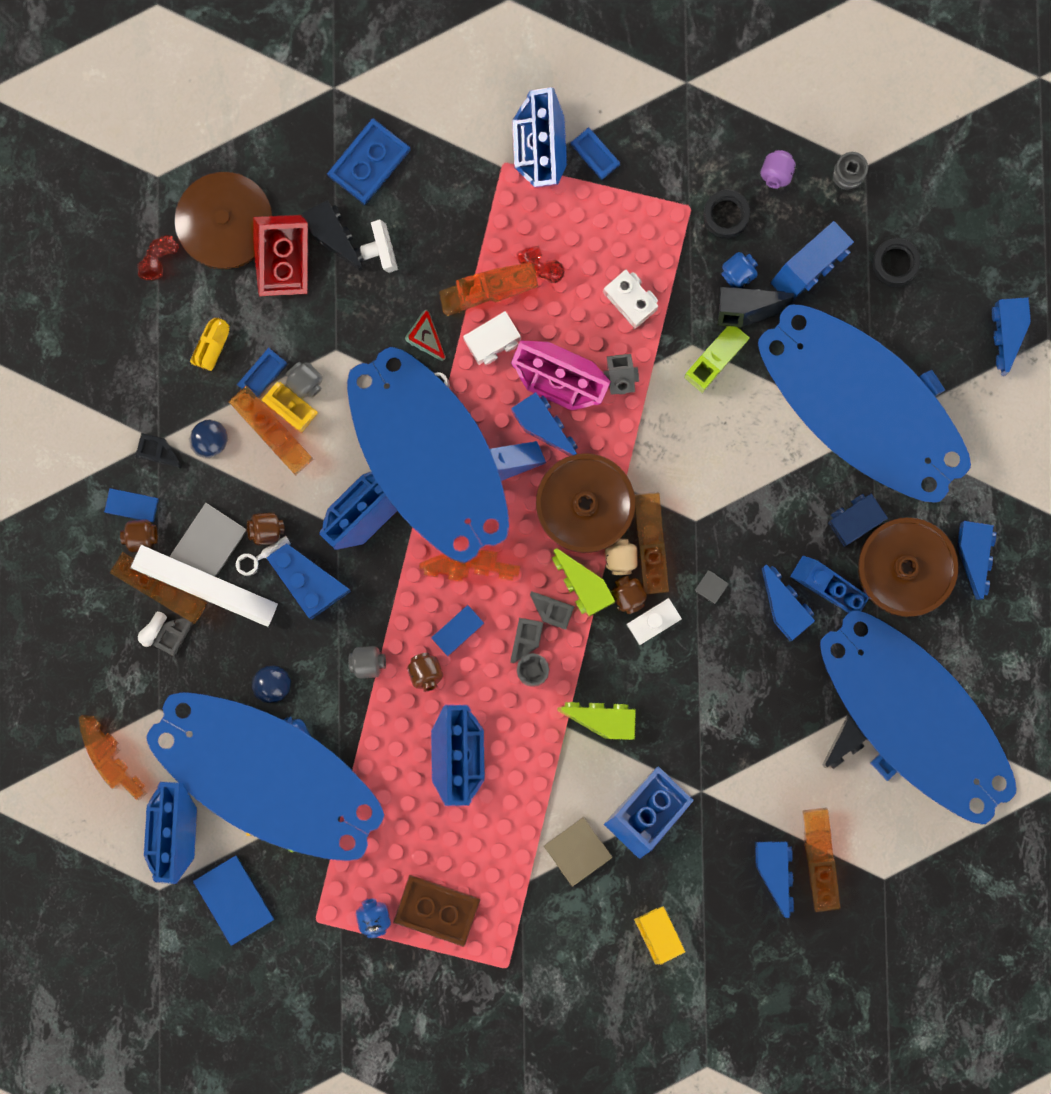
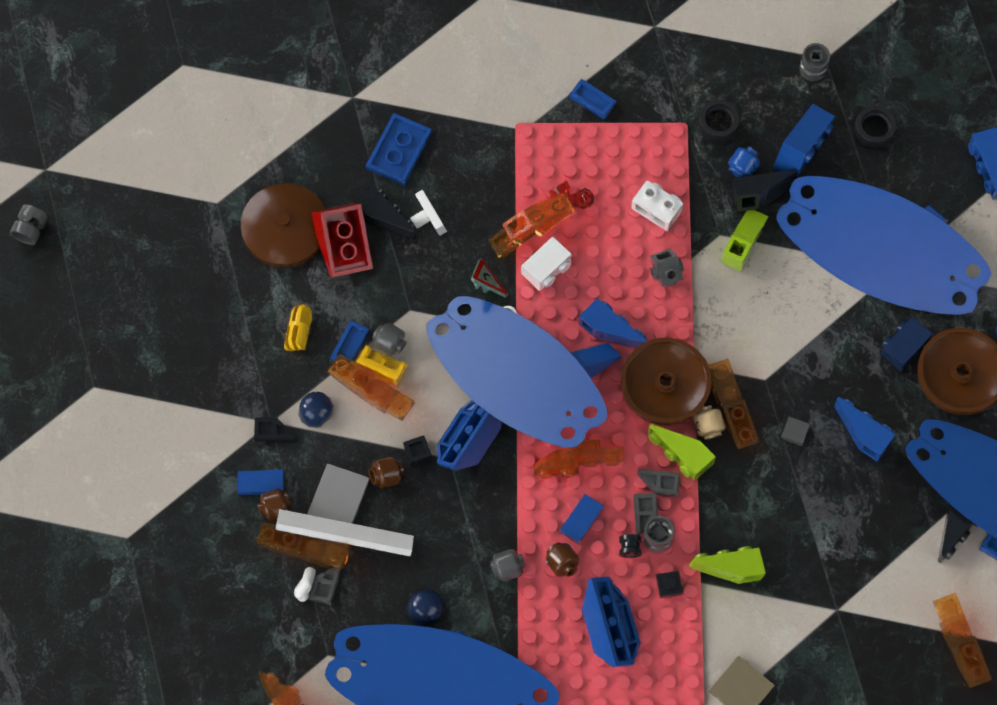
camera: 15 degrees left, 15 degrees down
(150, 267) = (230, 276): clear red arm -> none
(265, 553) = (392, 494): white piece -> none
(304, 511) = (417, 450): none -> black plate
(306, 581) = (435, 508): blue wedge -> none
(500, 674) = (630, 546): none -> black wheel
(530, 724) = (669, 584): none -> black plate
(540, 138) = (542, 94): blue wedge -> none
(559, 375) = (613, 281): dark pink wedge -> none
(628, 594) = (726, 453): reddish brown head -> none
(648, 813) = (795, 638): blue slope -> none
(654, 621) = (753, 472): white tile -> none
(772, 865) = (921, 659): blue slope -> none
(778, 169) = (753, 75): medium lavender head -> none
(829, 585) = (897, 403): blue slope -> none

